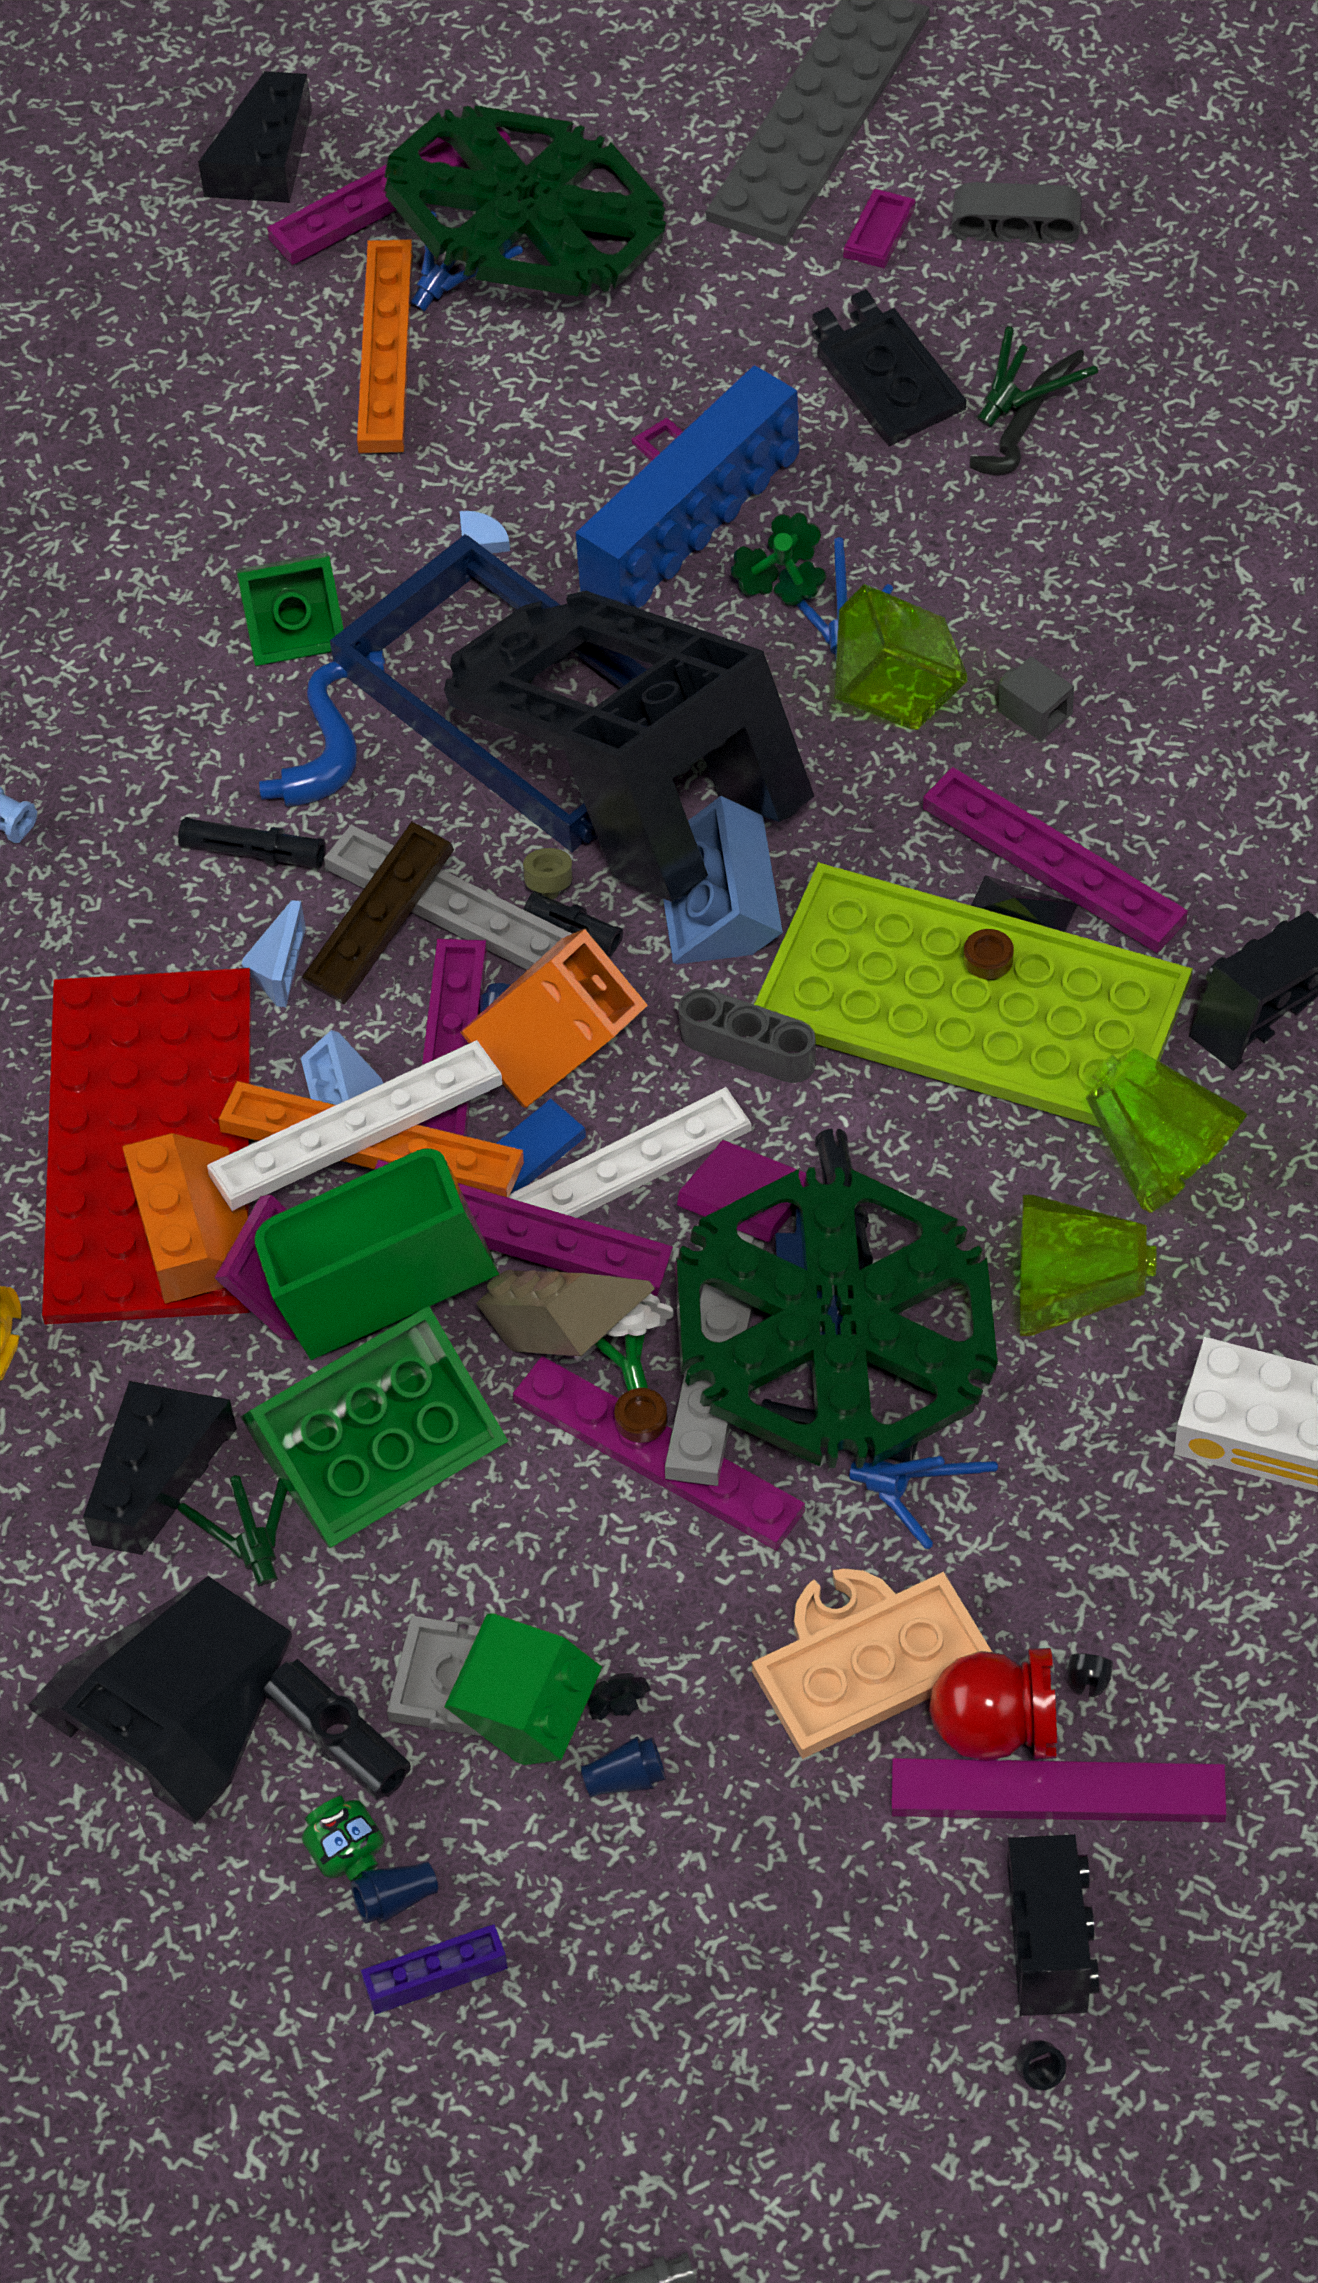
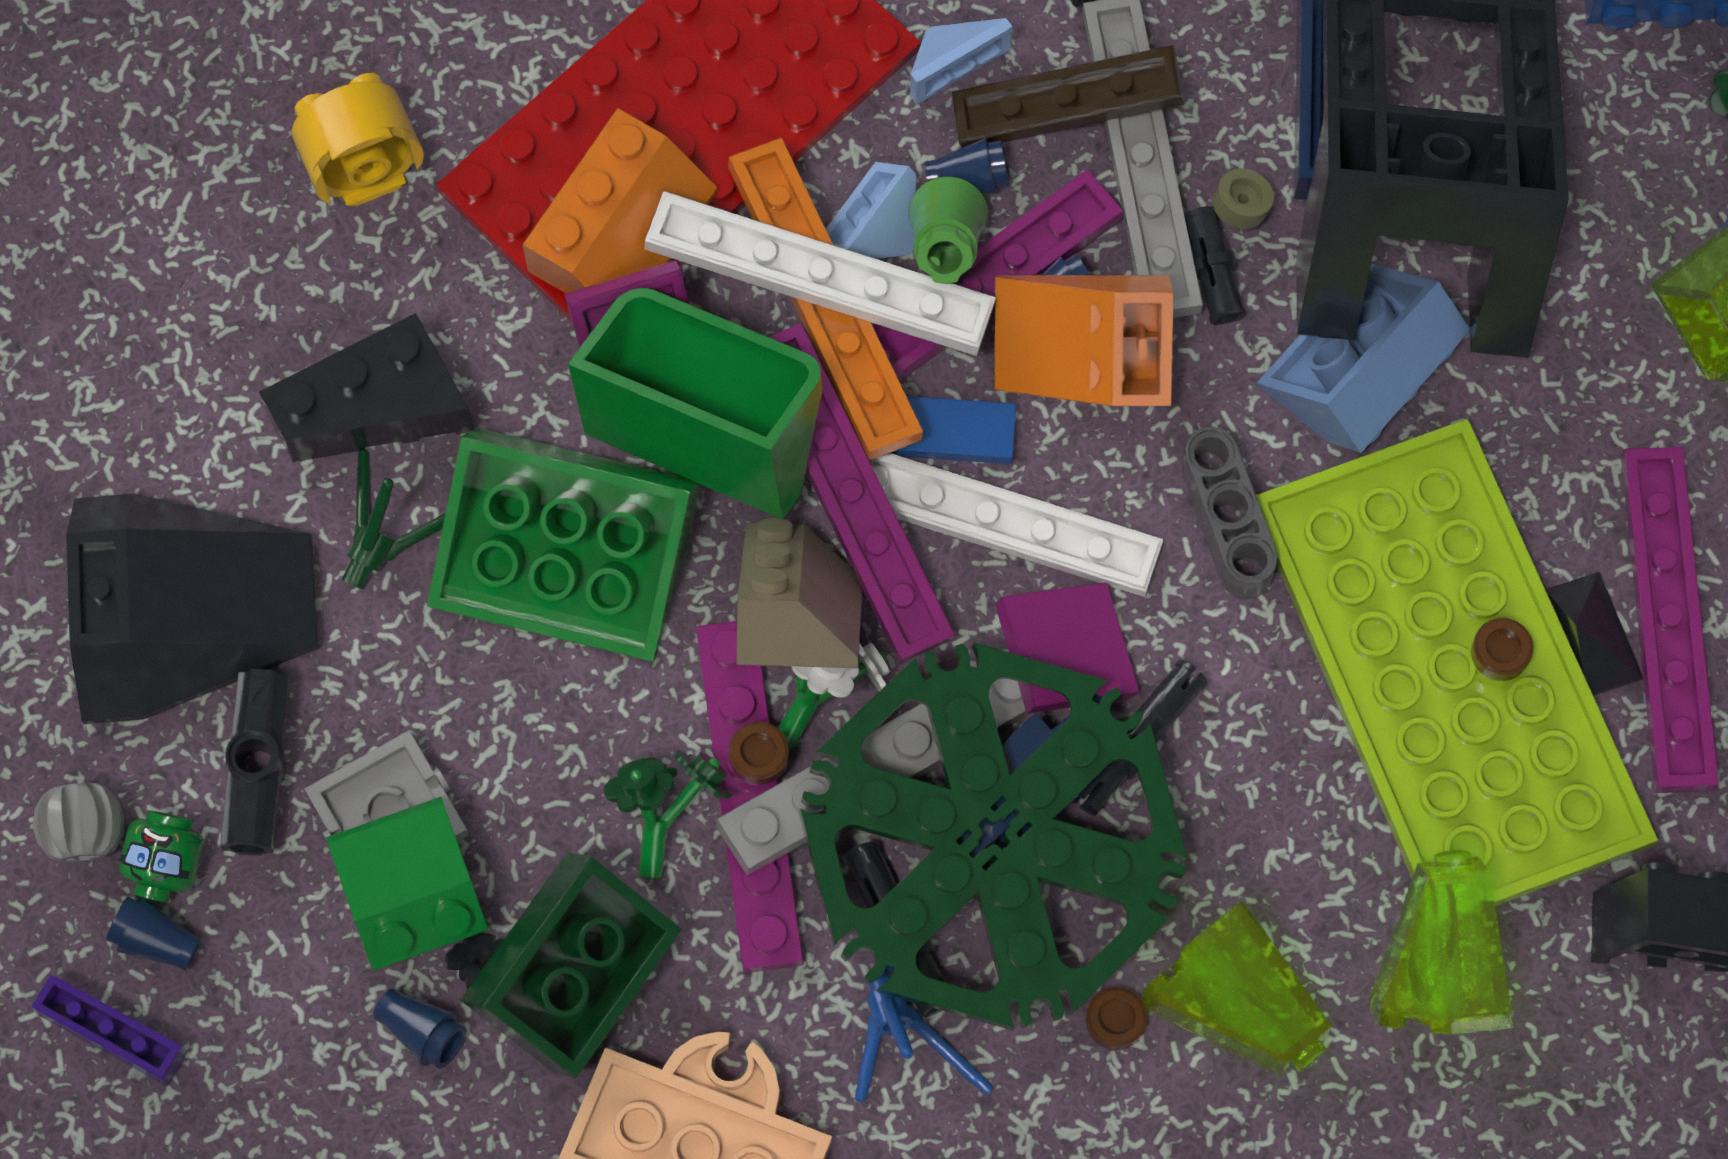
camera: 45 degrees right, 15 degrees up
(267, 1873) = (78, 822): none -> light grey piece
(367, 1003) = (979, 164): none -> dark blue cone
(397, 1038) = (947, 225): none -> bright green plant
(602, 1485) = (643, 786): none -> dark green plant
(678, 1630) = (571, 964): none -> dark green brick
(1019, 1355) = (1116, 1018): none -> reddish brown tile

